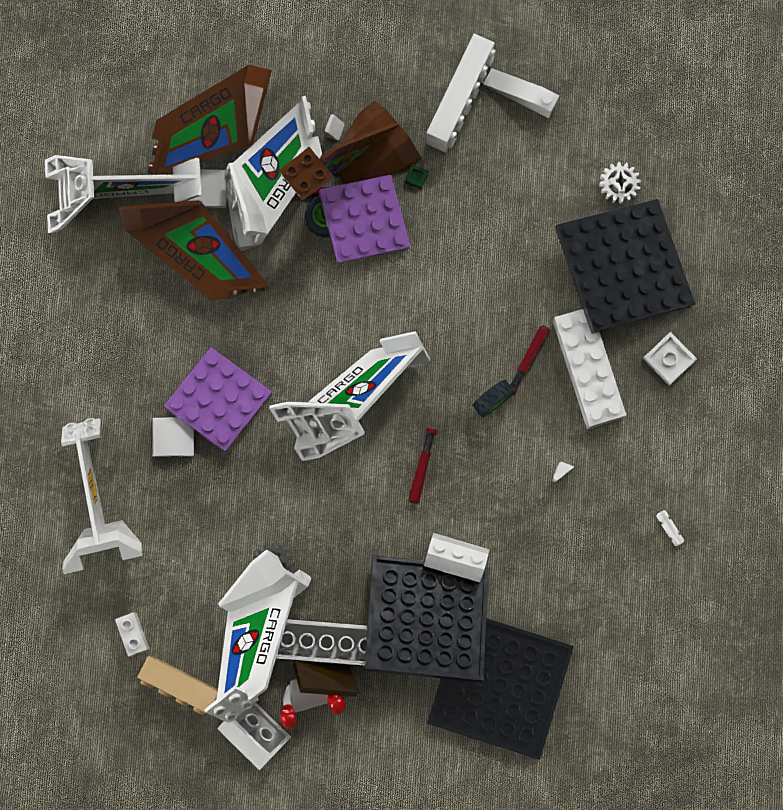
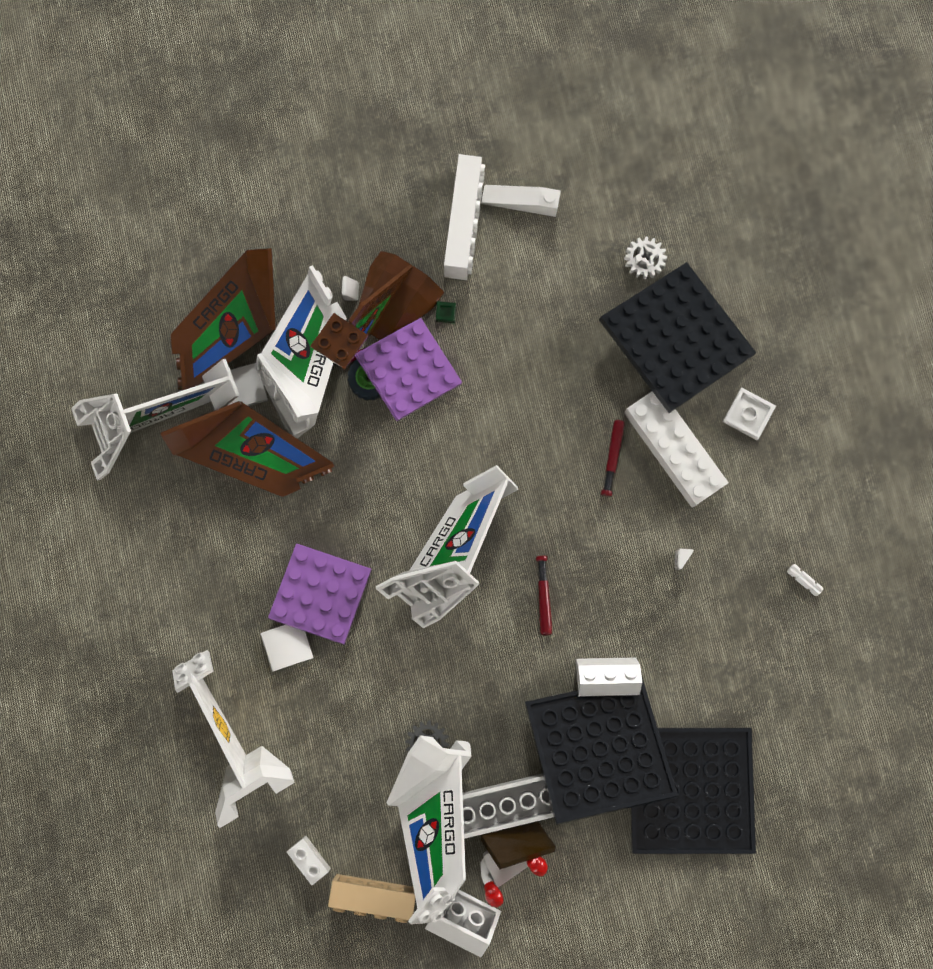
camera: 20 degrees left, 0 degrees up
(493, 398) = (593, 506): black wheel -> none

